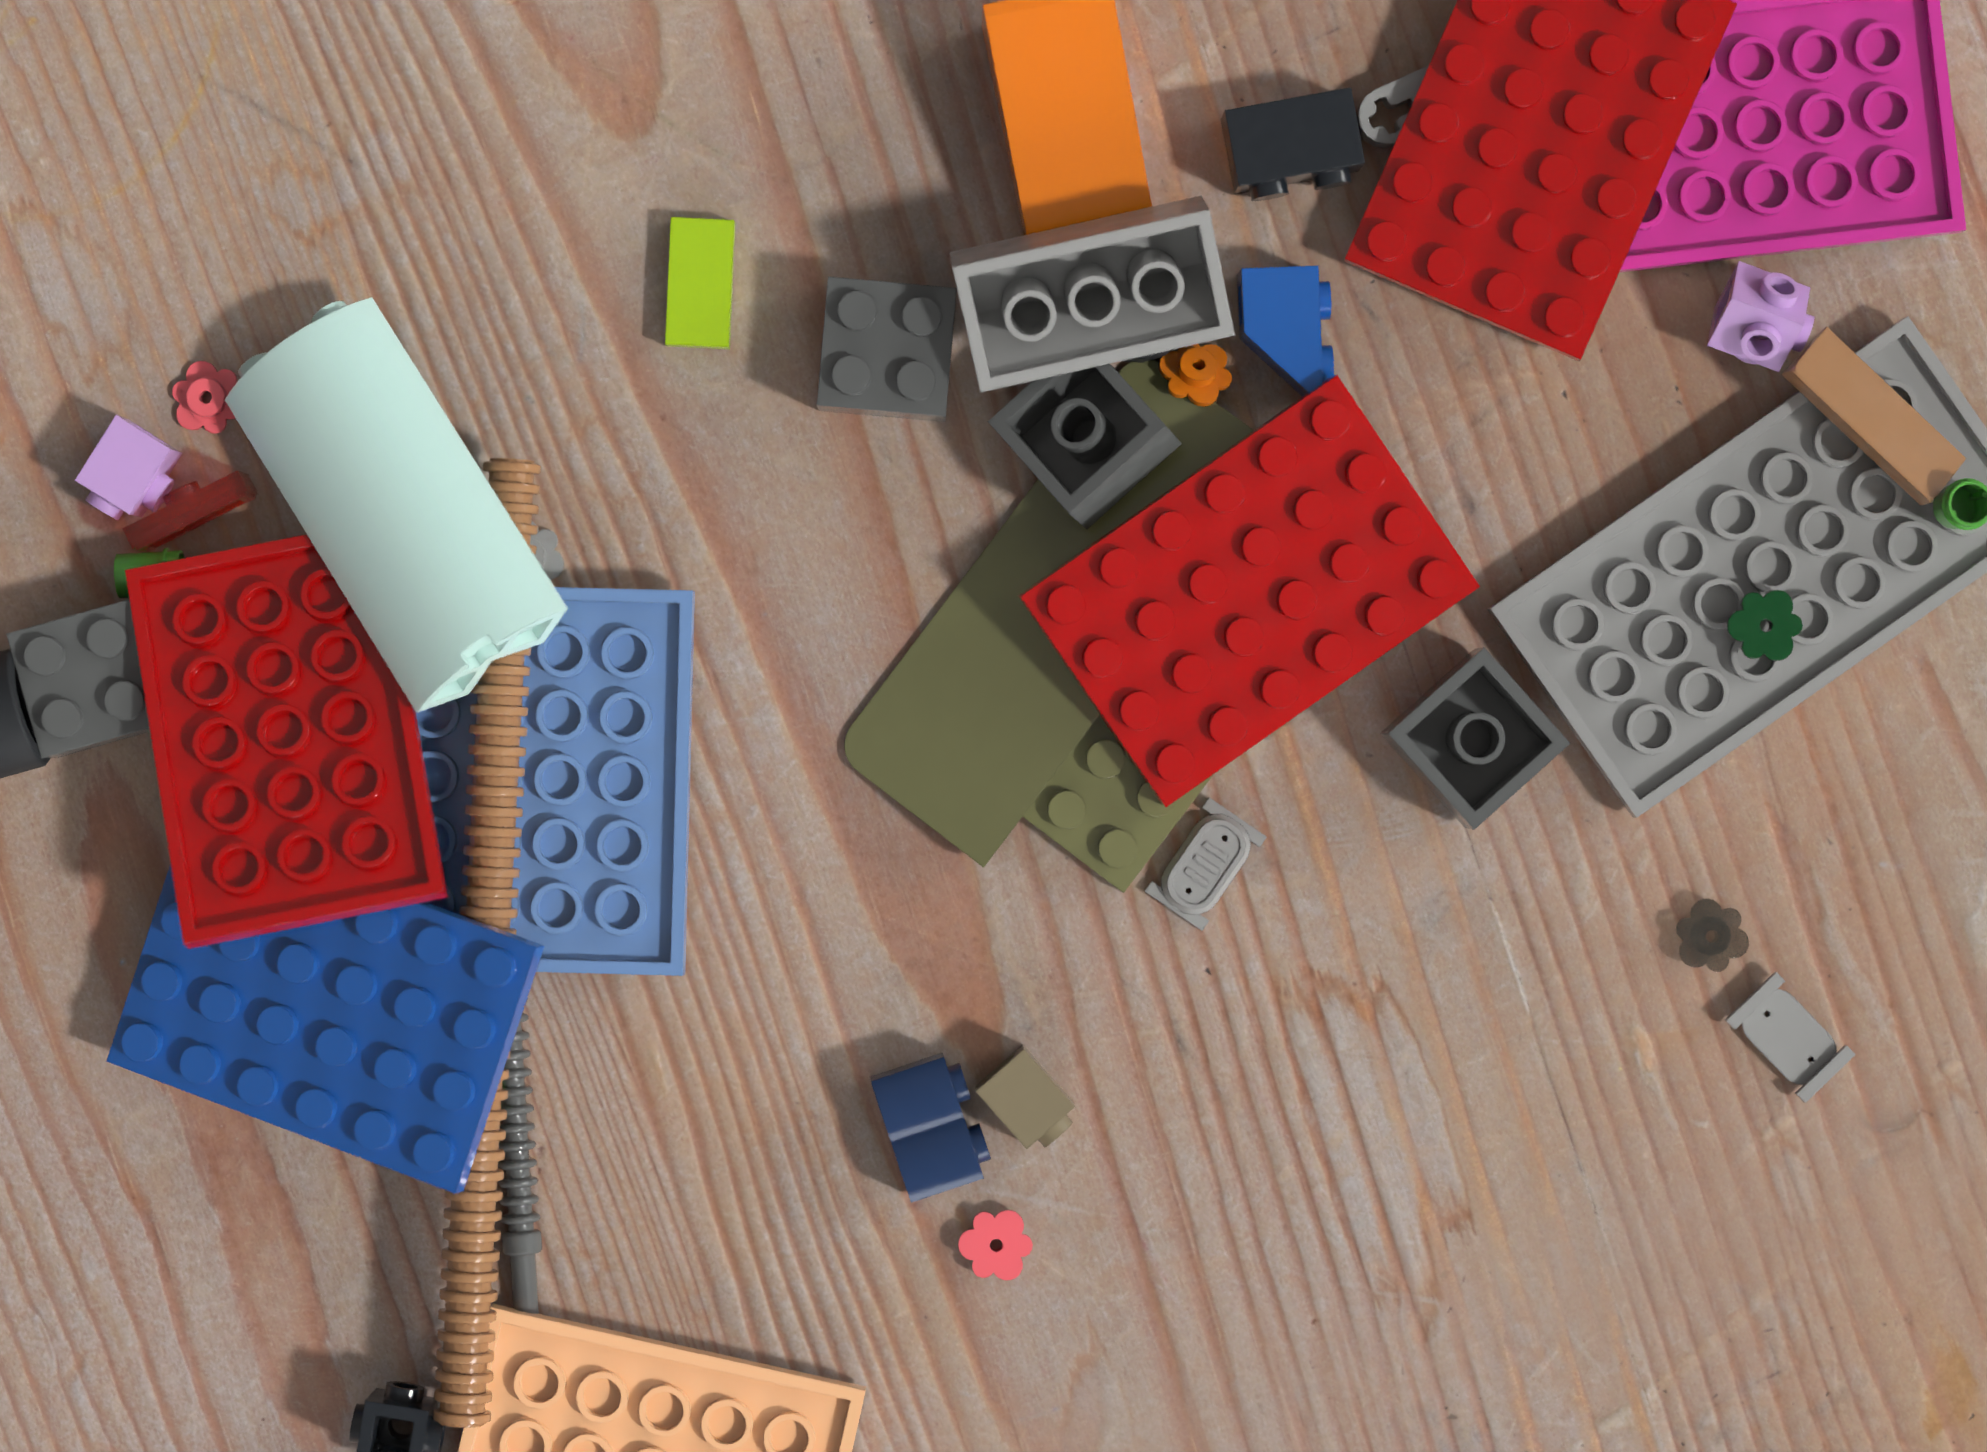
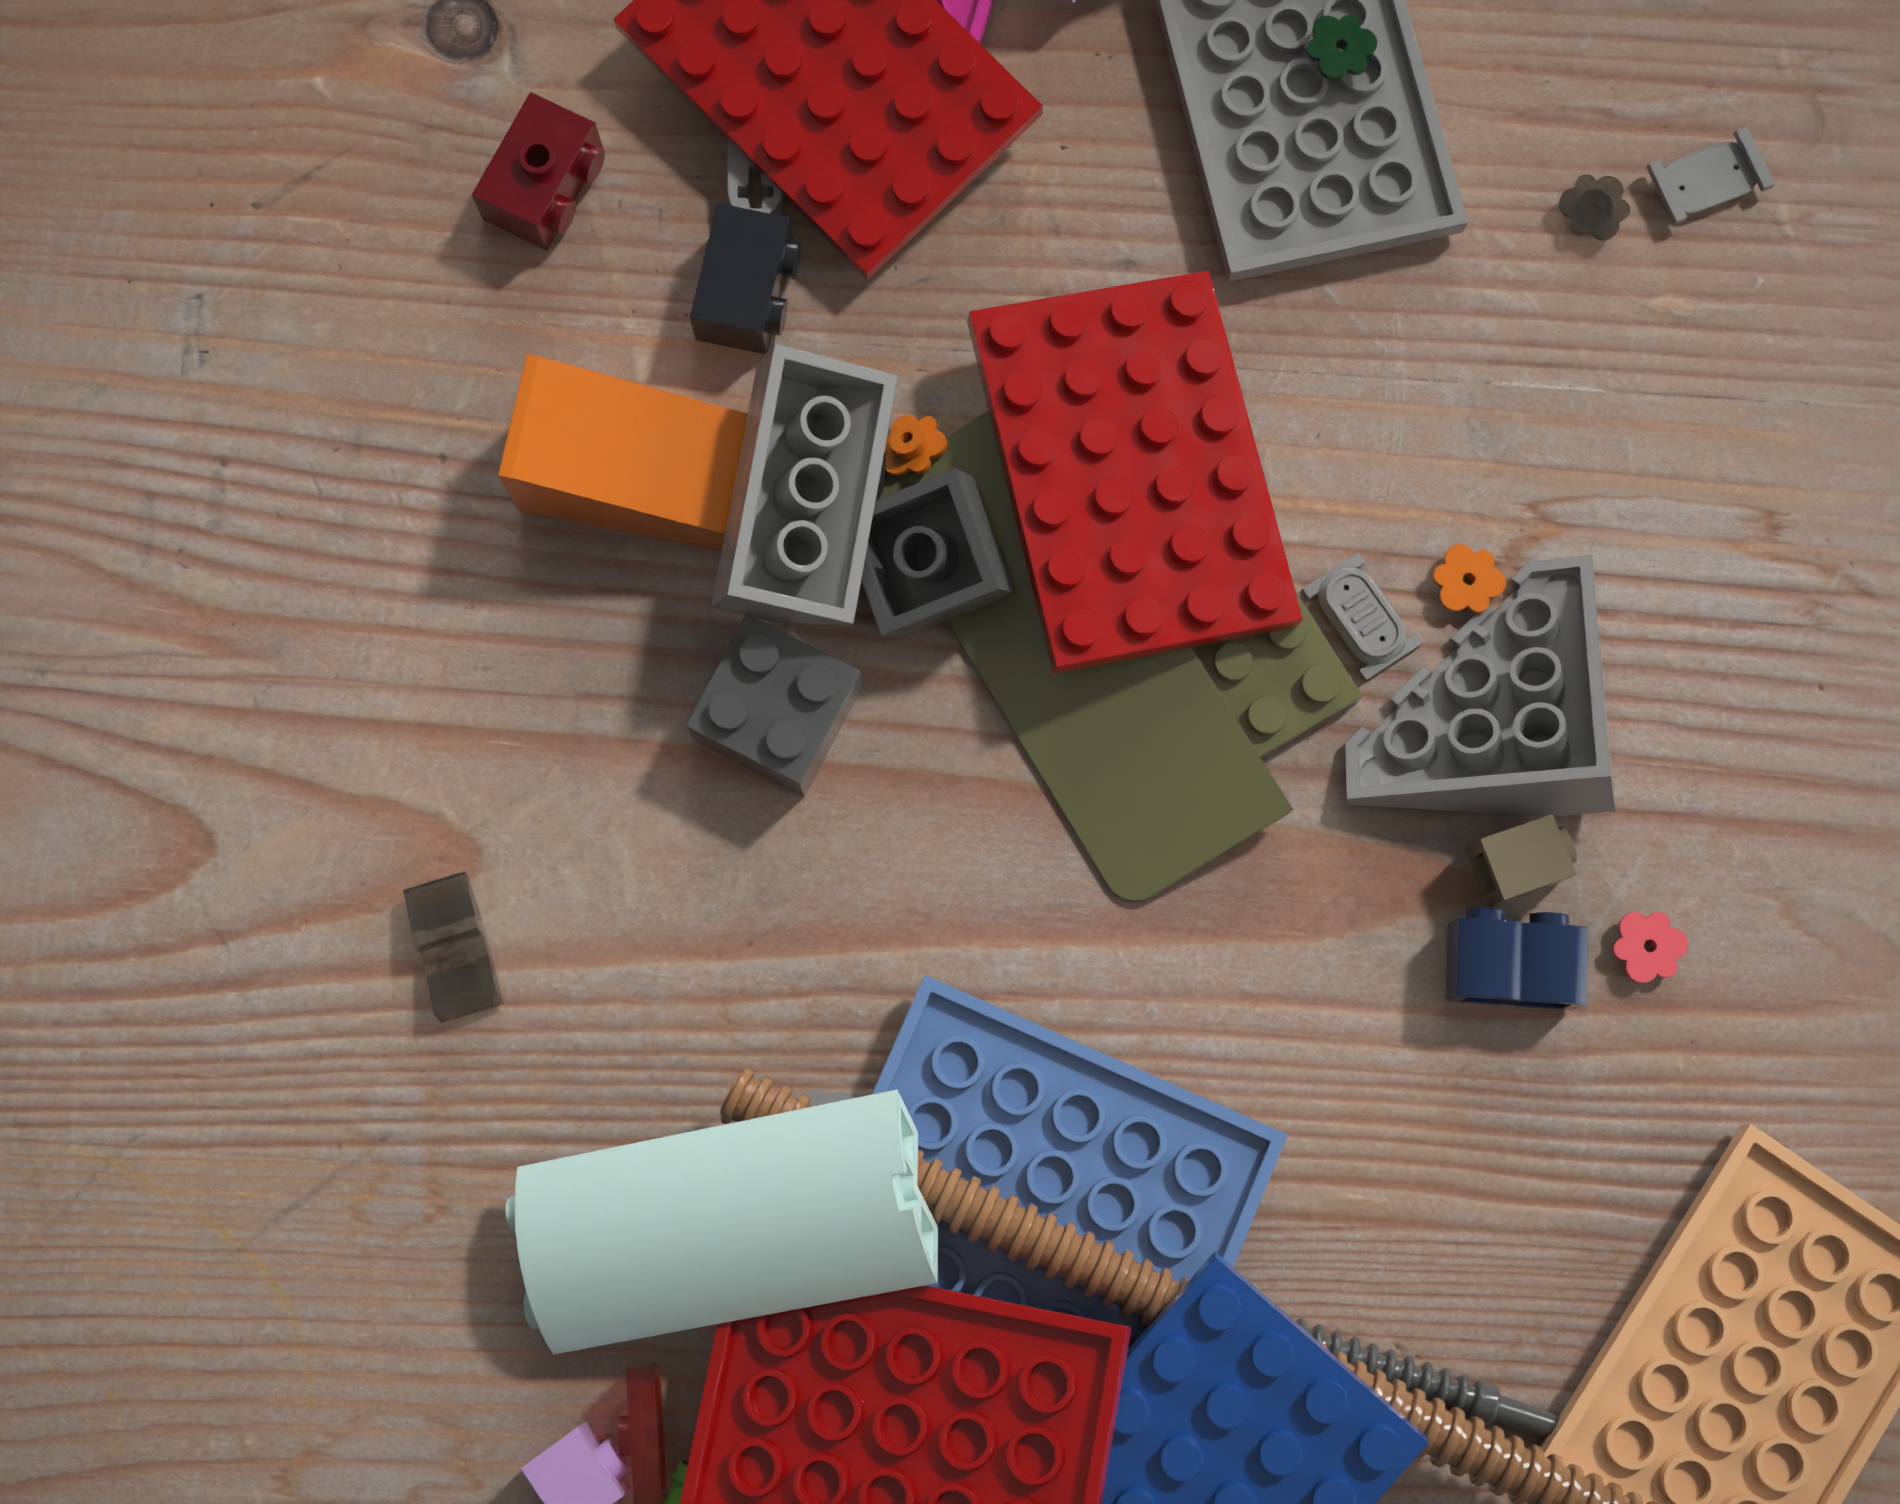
camera: 70 degrees left, 10 degrees down
(192, 411) = (552, 1392): coral plant -> none
(546, 148) = (453, 947): none -> clear smoke slope
(700, 283) = (640, 855): lime tile -> none
(1162, 1036) = (1506, 717): none -> light grey slope
(1282, 322) = (907, 343): blue slope -> none
(1283, 969) = (1462, 563): none -> orange plant
(1475, 738) = (1344, 327): dark grey brick -> none

